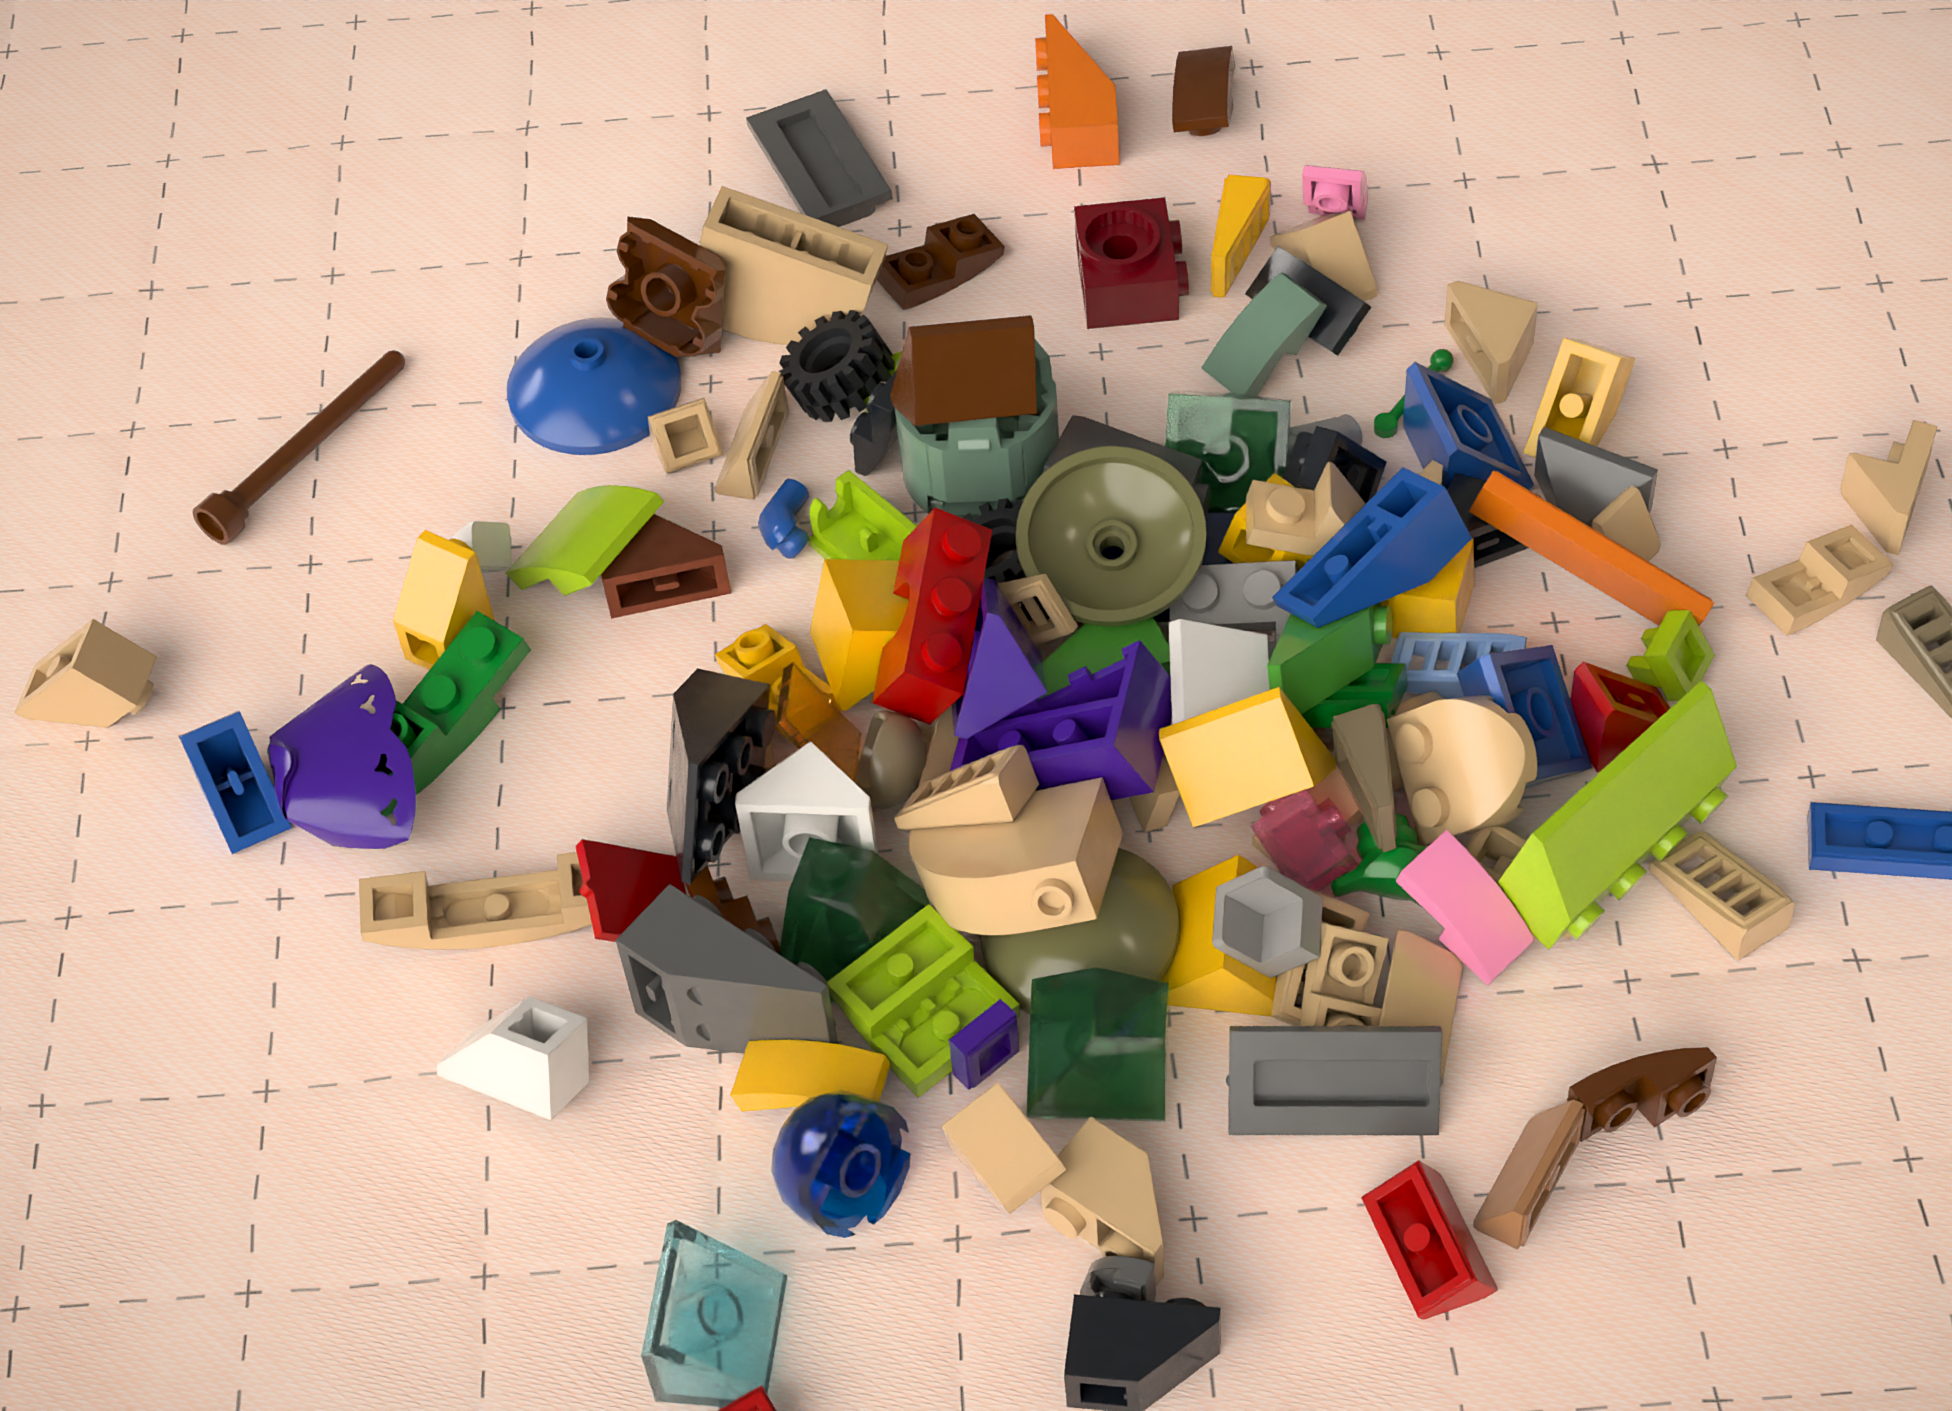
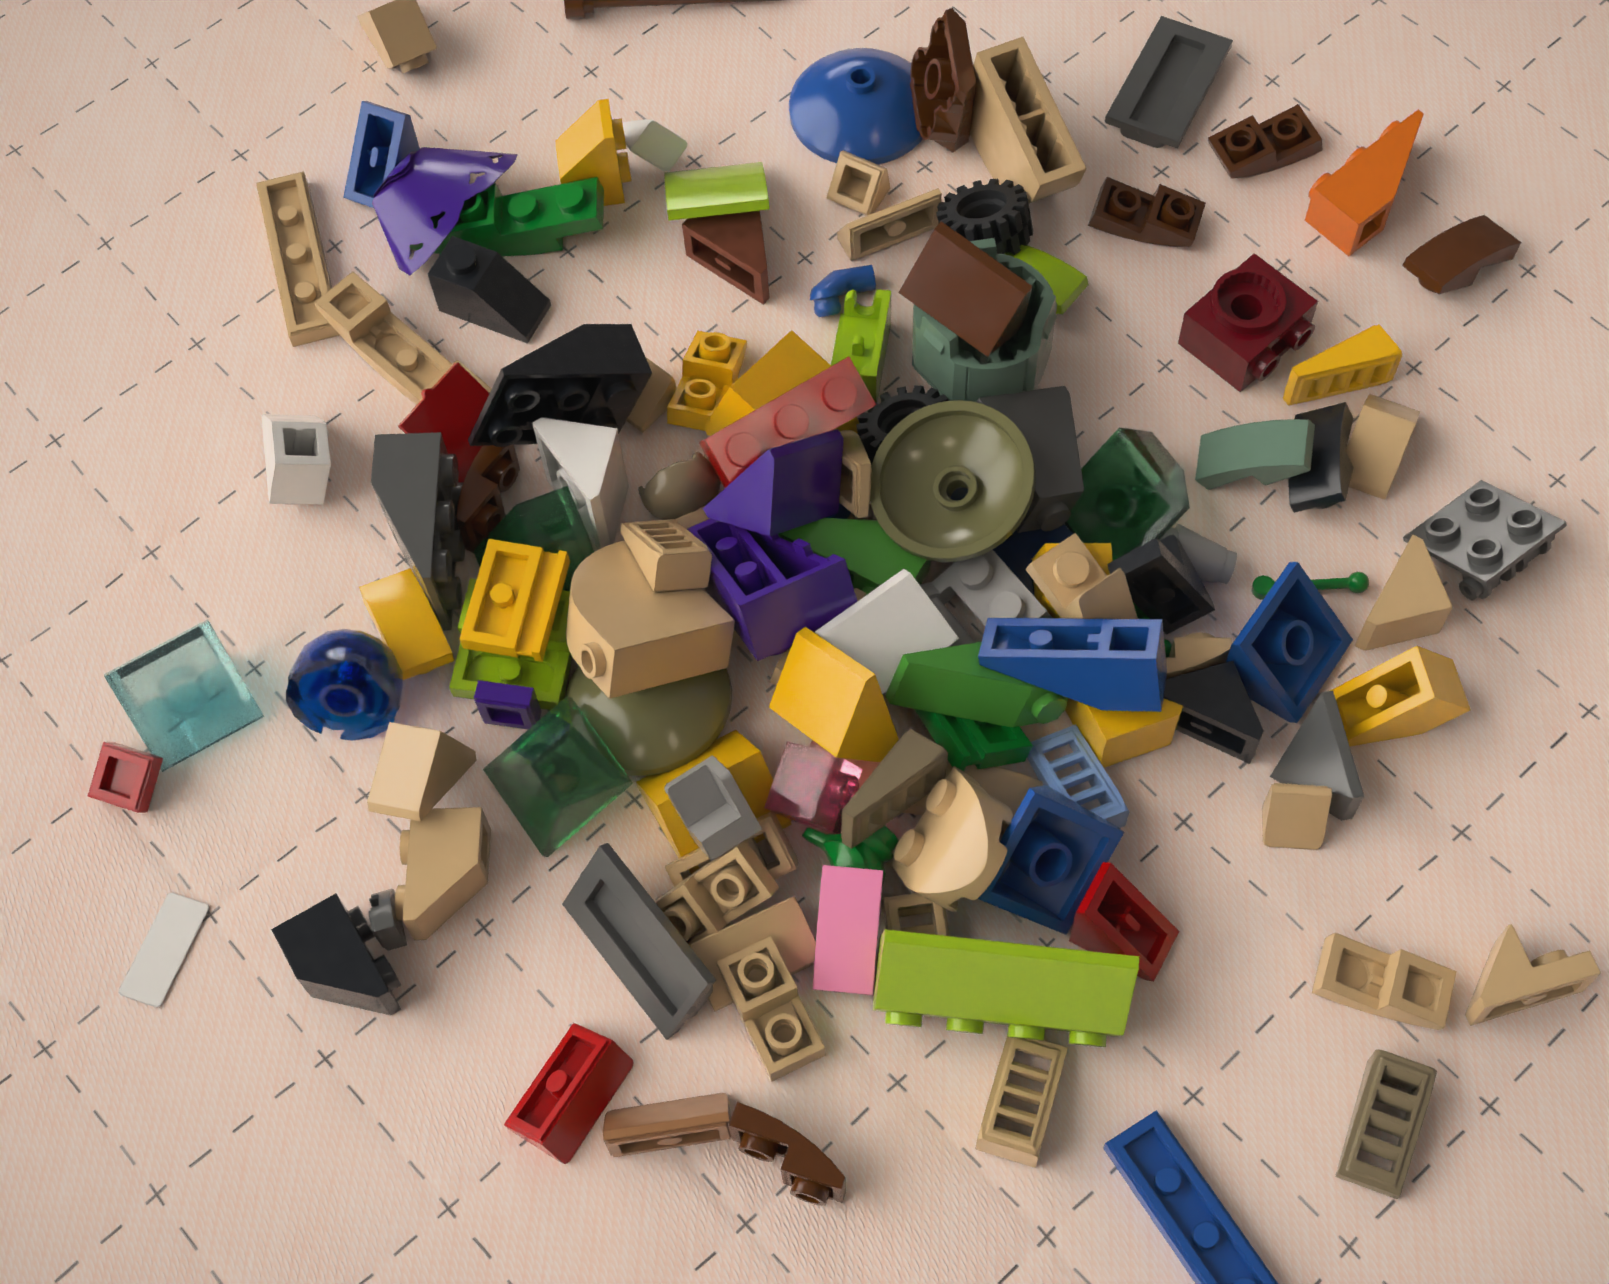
camera: 50 degrees right, 10 degrees up
(264, 935) = (296, 256): none -> tan tile
(493, 790) = (486, 290): none -> black slope
(810, 715) = (661, 426): clear orange piece -> none
(898, 950) = (514, 600): none -> yellow plate
(955, 138) = (1260, 148): none -> reddish brown slope
(1335, 191) = (1428, 398): bright pink slope -> none
(1480, 246) = (1487, 537): none -> dark grey hinge
(1486, 1026) = (771, 1008): none -> tan slope
(1585, 551) = (1234, 803): orange tile -> none
(1674, 655) = (1209, 926): lime tile -> none

